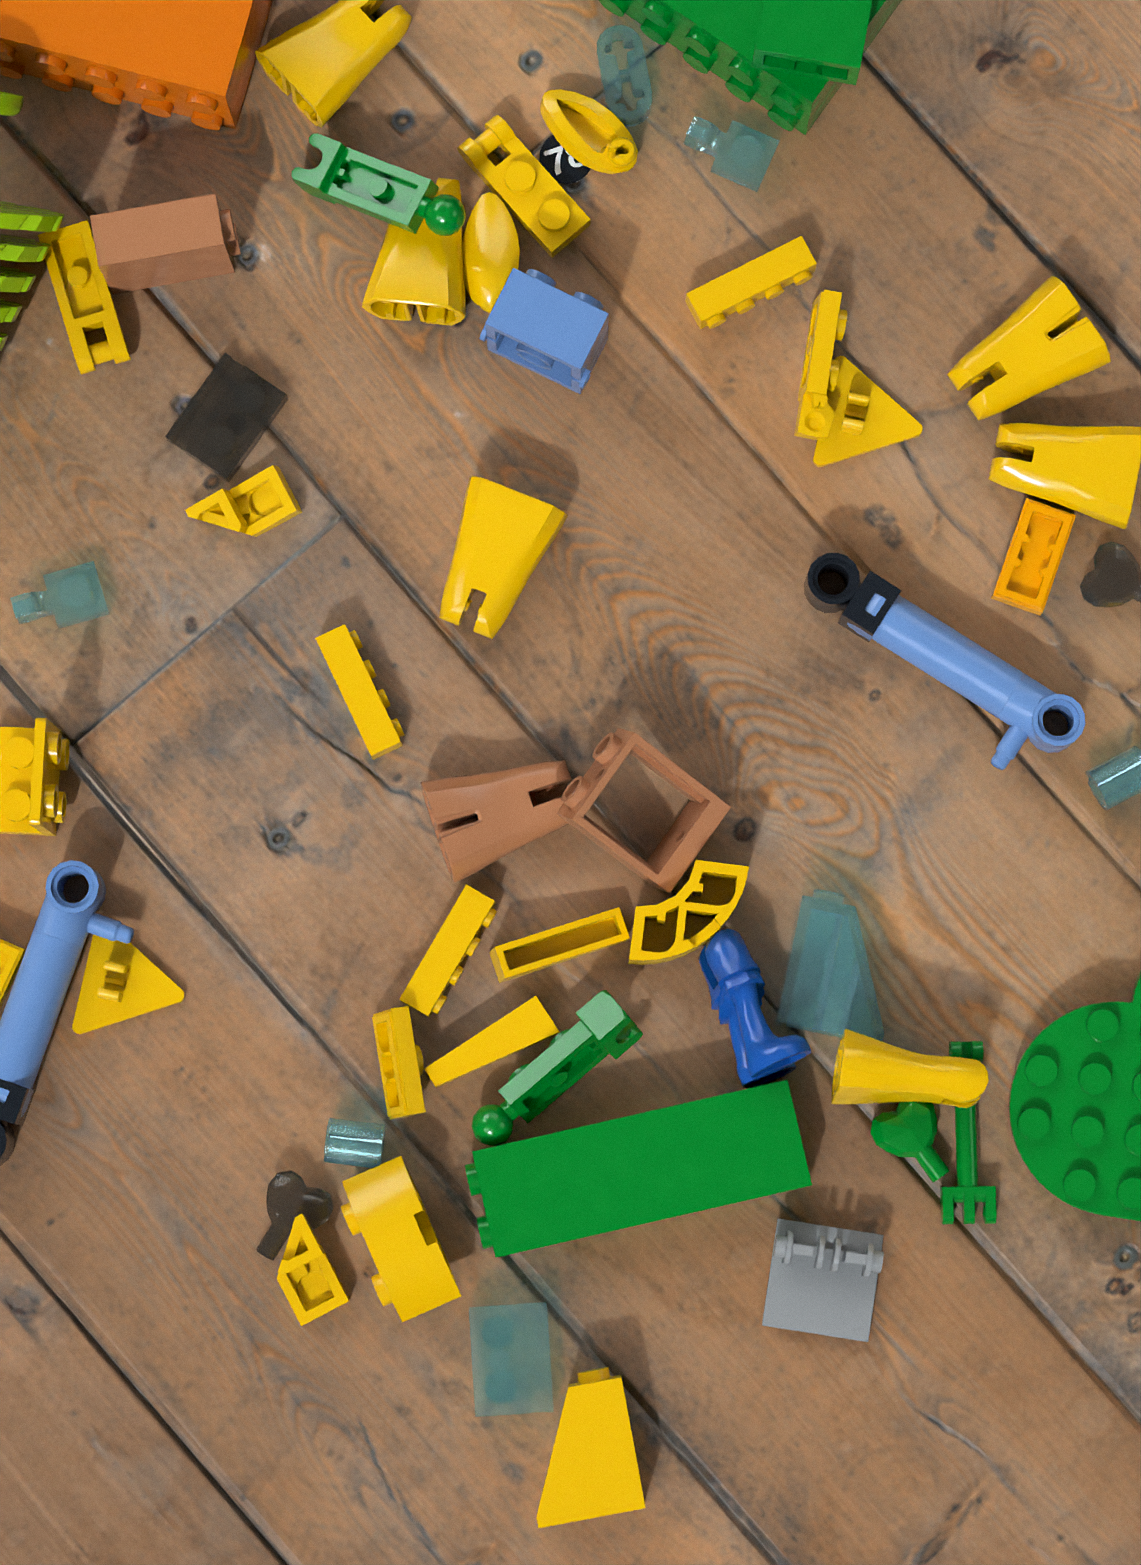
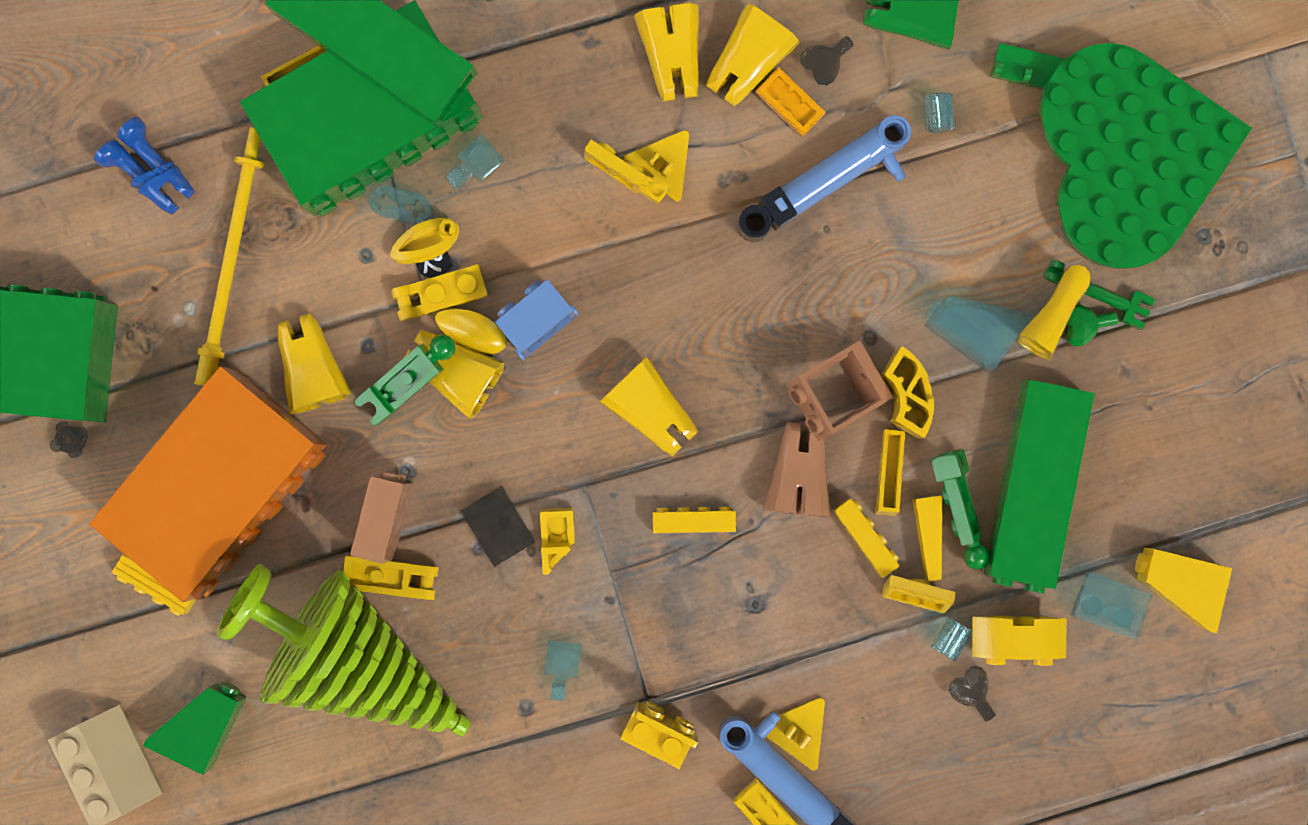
camera: 65 degrees left, 5 degrees up
(309, 1275) = (1014, 698): yellow slope -> none
(737, 994) = (963, 384): blue piece -> none
(751, 282) = (557, 188): yellow piece -> none
(823, 1280) = (1144, 410): light grey hinge -> none

